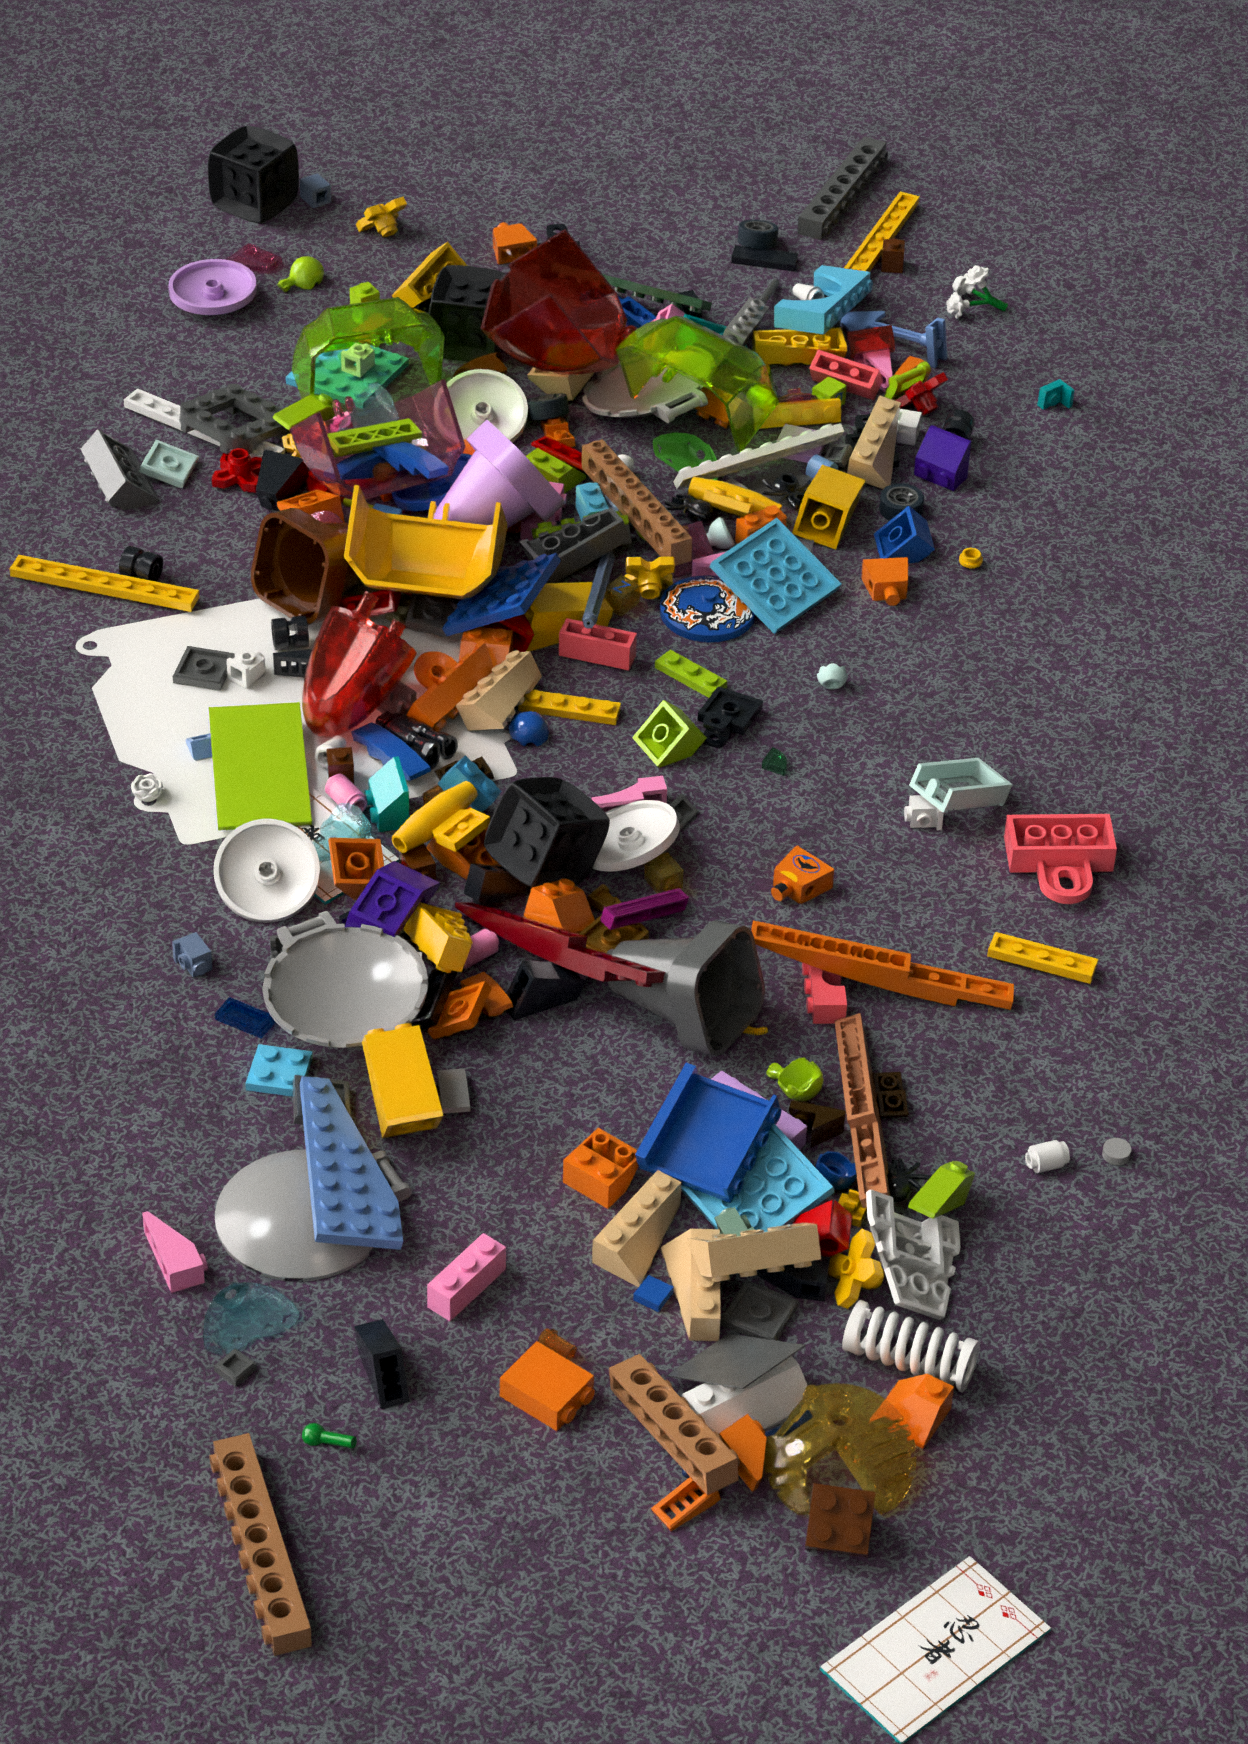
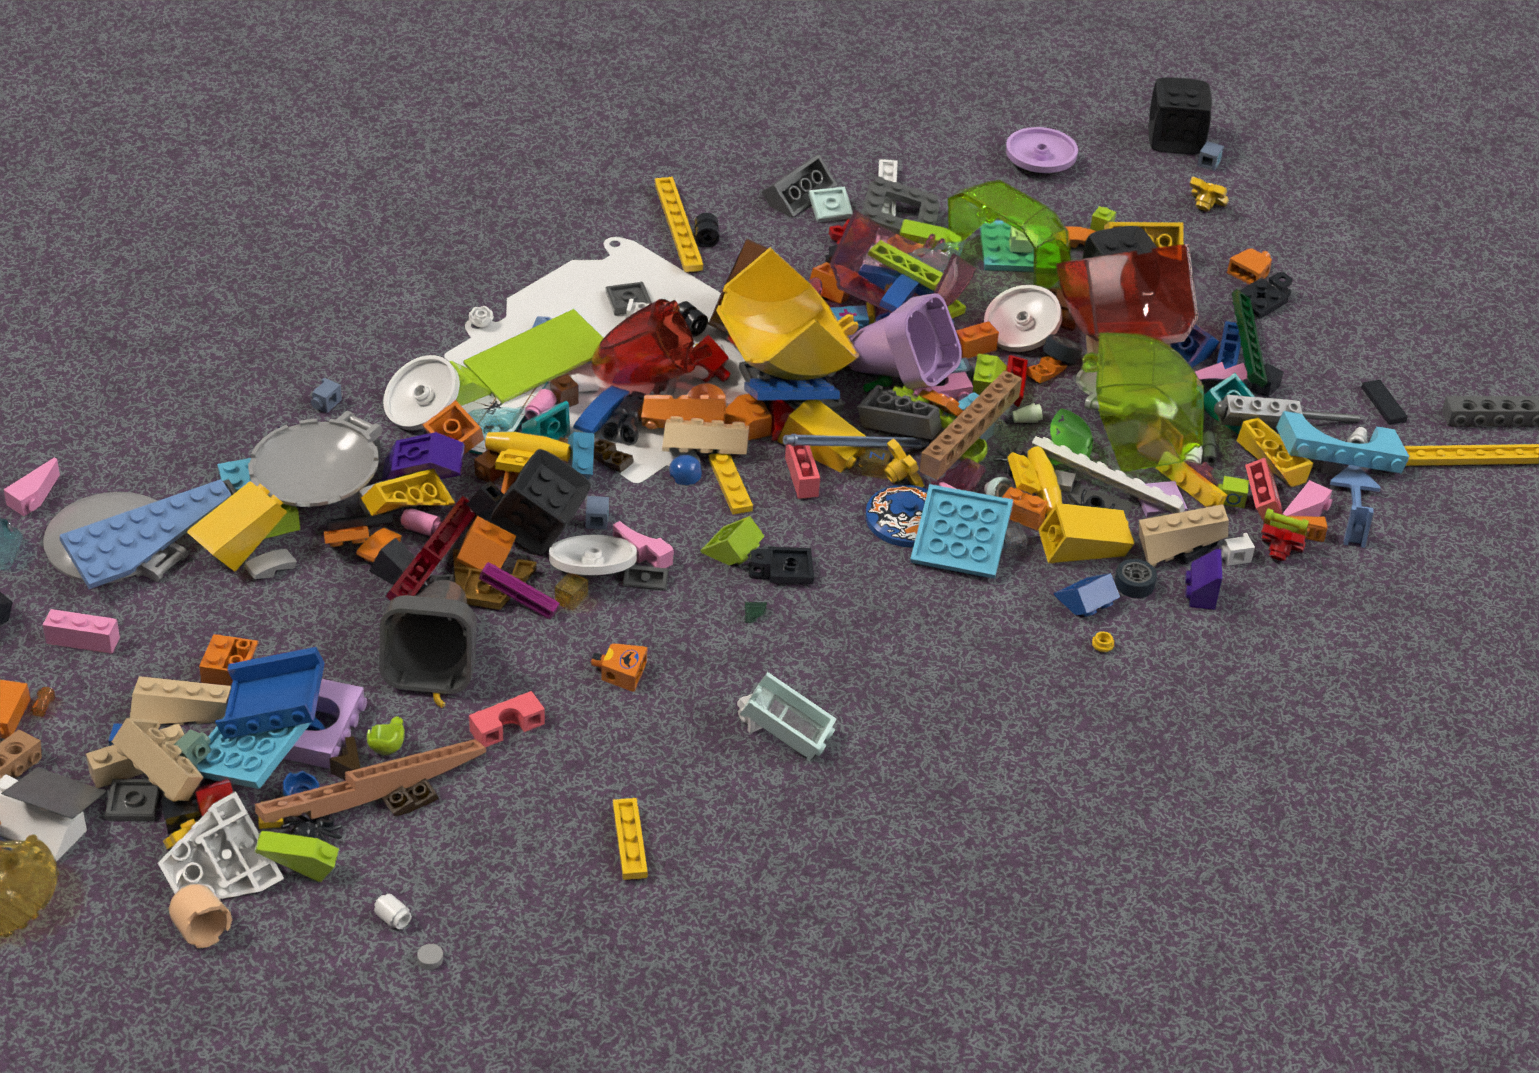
camera: 60 degrees right, 0 degrees up
(256, 259) = (1102, 159): clear pink wing -> none
(303, 274) = (1107, 185): lime hair -> none
(588, 507) = (940, 400): none -> orange plate
(689, 673) = (821, 531): lime plate -> none
(758, 234) = (1404, 385): black wheel -> none
(816, 462) = (1134, 515): medium blue brick -> none
(832, 676) = (876, 607): light aqua plate -> none
(870, 340) = (1314, 486): clear red panel -> none
(881, 967) = (535, 739): orange slope -> none
(886, 579) = (1027, 600): orange torso -> none
(892, 255) = (1459, 467): reddish brown brick -> none
(923, 1404) = (70, 920): orange slope -> none
(959, 423) = (1261, 577): black wheel -> none
(964, 285) = (1462, 519): white plant -> none
(968, 1355) = (125, 890): white piece -> none
(977, 1297) = (199, 915): none -> light nougat cylinder
(1054, 393) = (1372, 621): teal bracket -> none
(1061, 848) = (763, 805): coral brick -> none

